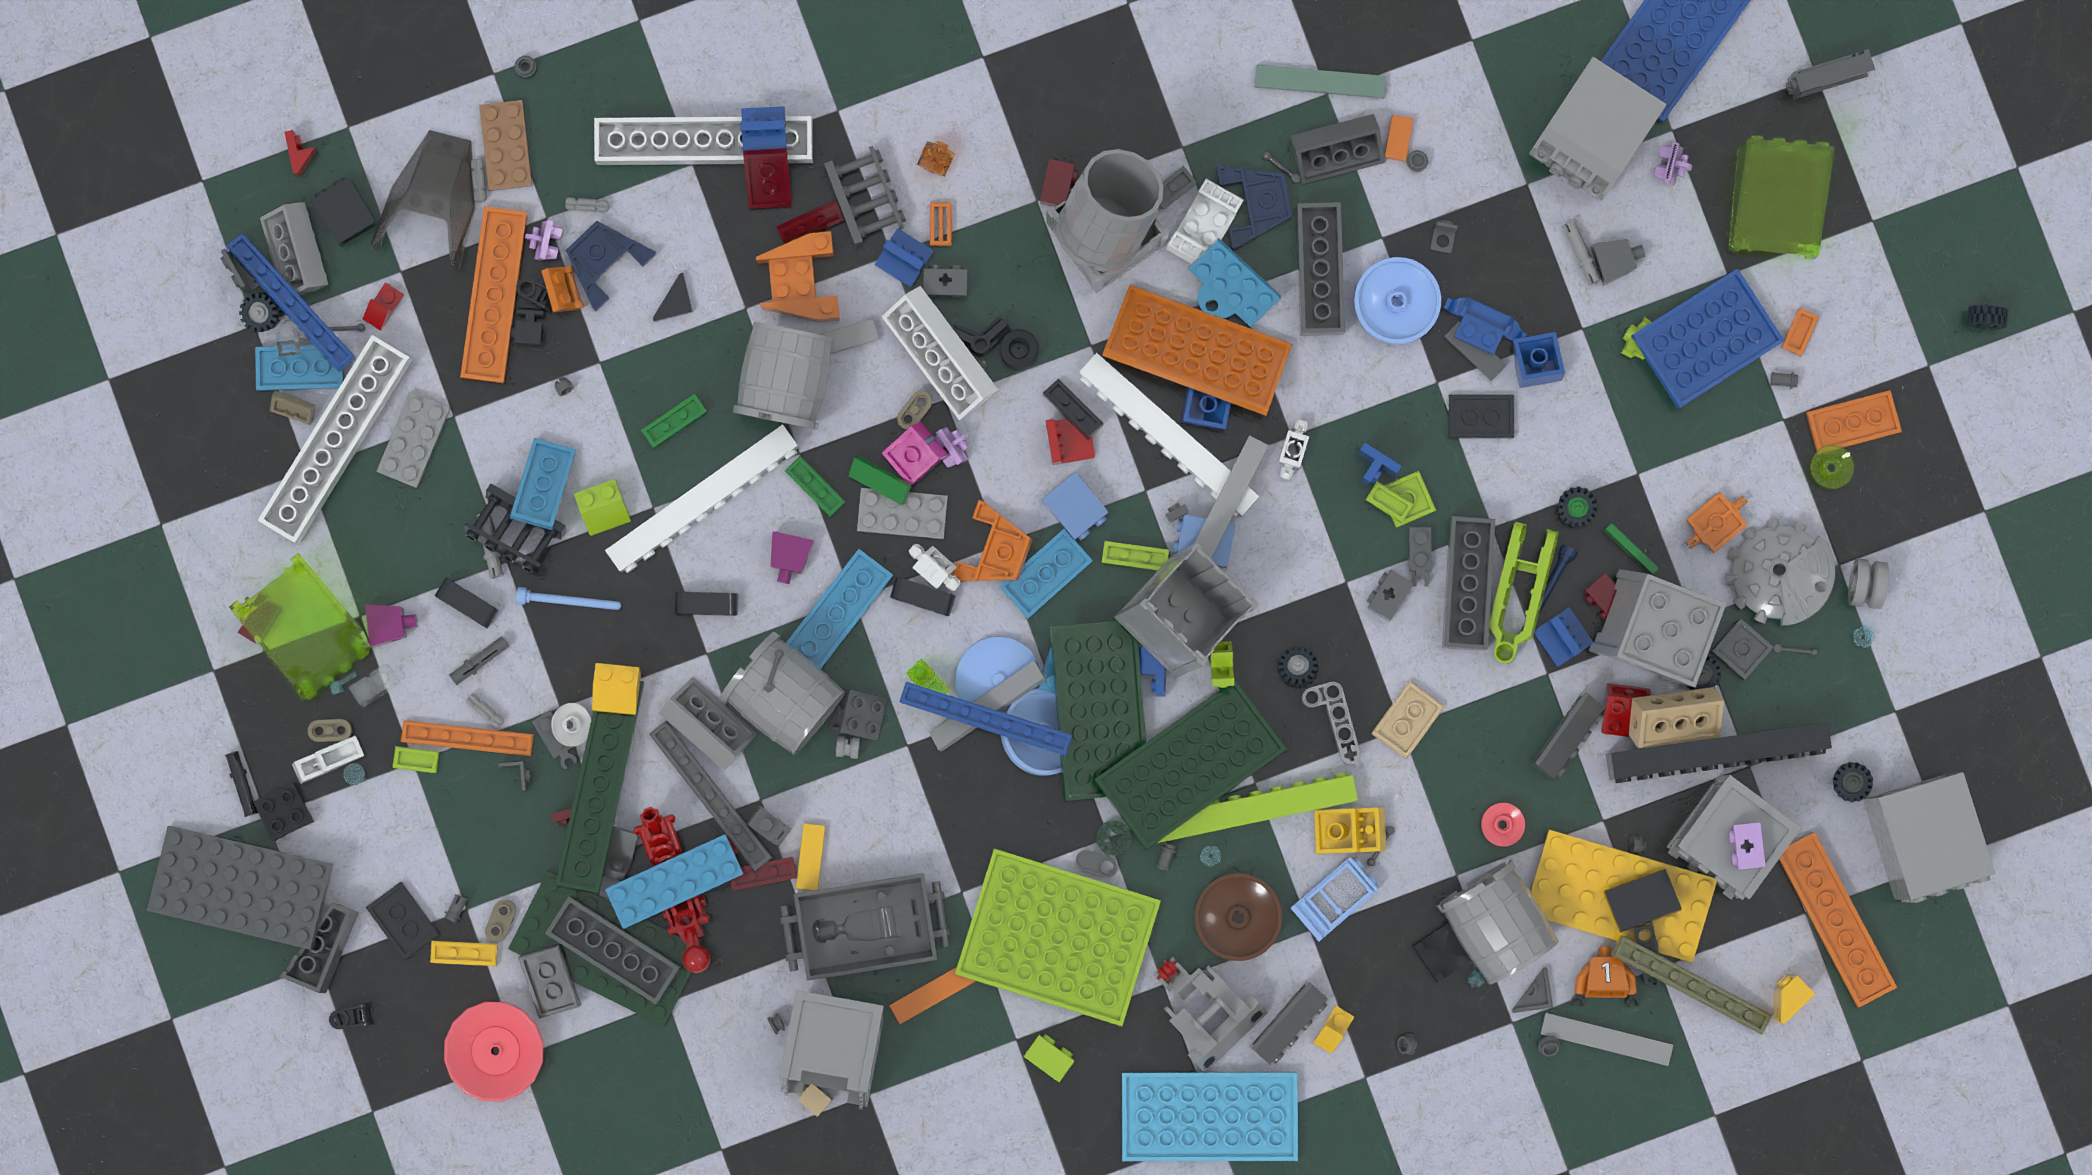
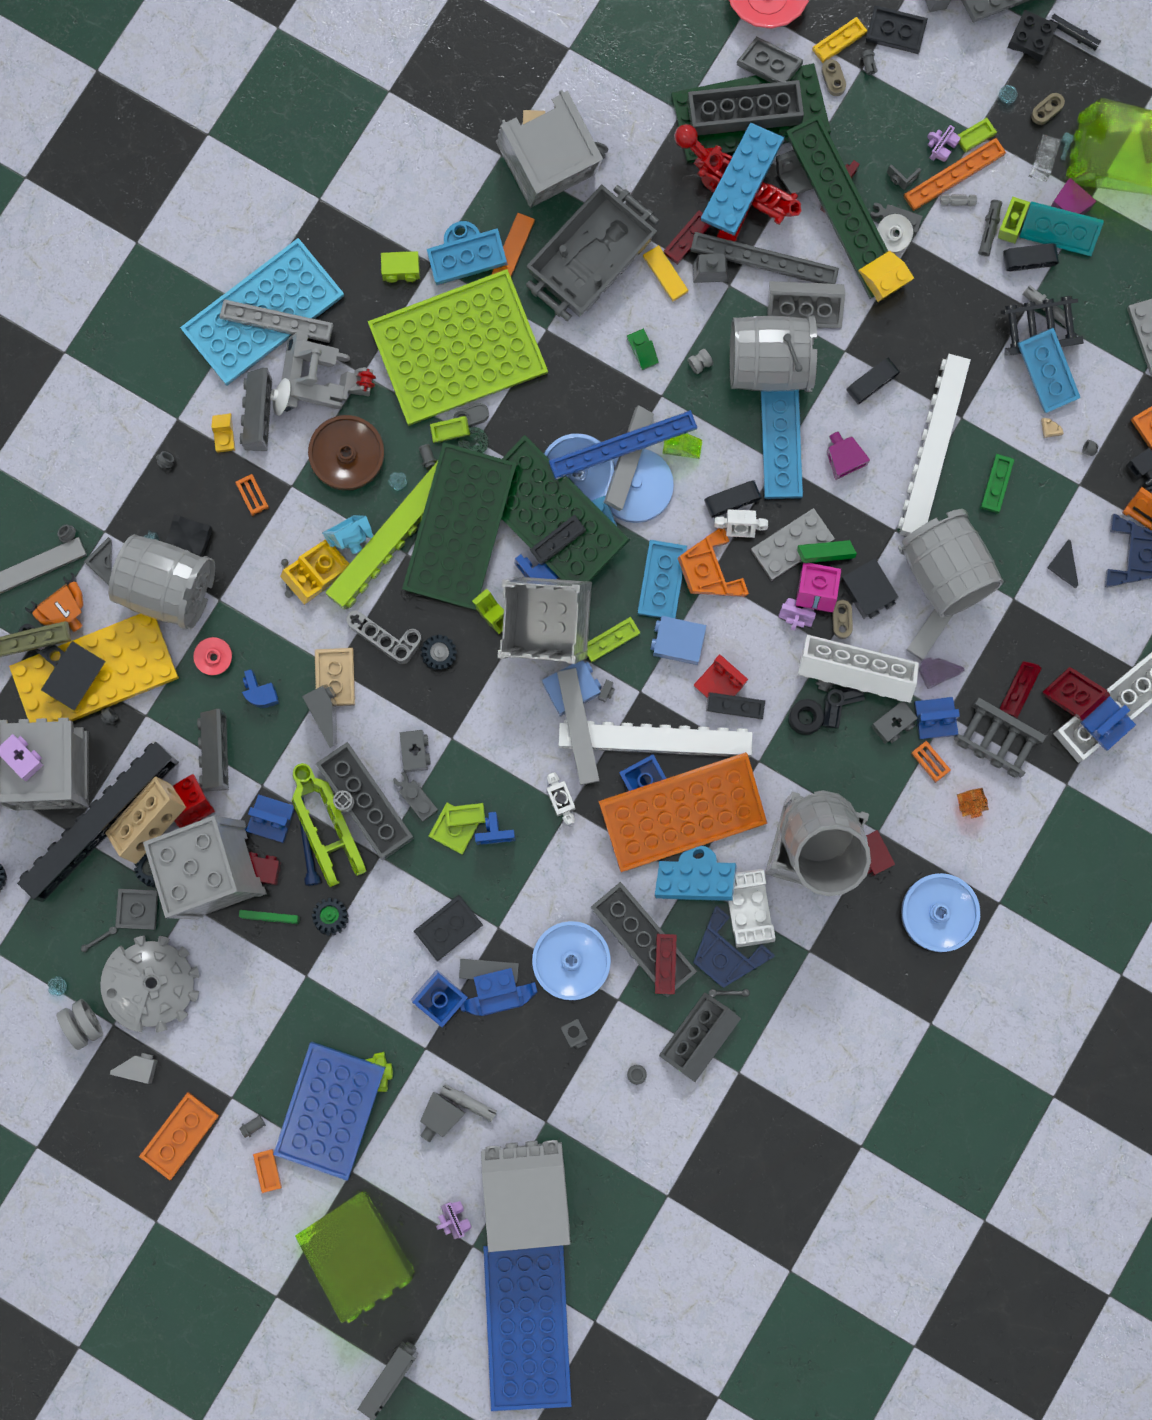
camera: 140 degrees right, 5 degrees down
(327, 759) = (1033, 89): white slope -> none
(418, 605) = (1061, 227): none -> teal plate
(454, 648) = (1013, 220): none -> lime brick
(464, 770) = (939, 150): none -> lavender hips
(525, 596) = (996, 292): light blue piece -> none
(582, 433) = (1051, 428): none -> tan tile
(602, 507) = (996, 389): lime slope -> none
(794, 279) = (997, 642): orange wedge -> none
(815, 486) = (866, 516): green tile -> none
(858, 715) = (710, 387): dark grey bracket -> none
(868, 416) = (869, 589): none -> black brick
(869, 296) = (938, 671): none -> clear purple slope
(889, 802) = (643, 349): none -> green slope
(980, 1021) = (466, 253): none -> dark azure plate
(1043, 87) = (940, 912): none -> light blue dish
(1113, 679) = (558, 539): none -> black tile
(1126, 865) = (449, 429): none -> lime tile
(1176, 186) = (793, 912): dark grey plate -> none
(1205, 1094) = (276, 320): none -> light grey tile
(1256, 1017) = (280, 396): none -> white dish
(1294, 838) = (349, 533): none -> medium azure brick
(1320, 81) = (751, 1076): sand green tile -> none
(1320, 229) = (665, 964): none -> dark red plate
(1335, 898) = (290, 517): door -> none
(1344, 946) = (258, 508): none -> orange tile
(1398, 138) = (663, 1080): orange tile -> none
(1442, 697) = (323, 709): none -> dark grey slope
(1486, 596) = (345, 803): none -> light grey wheel
(1490, 755) = (261, 696): none -> blue brick
(1716, 522) = (223, 984): orange plate -> none
(1840, 459) = (159, 1090): clear neon green dish -> none
(1847, 508) = (137, 1068): none -> light grey slope
(1987, 317) = (137, 1290): black wheel -> none

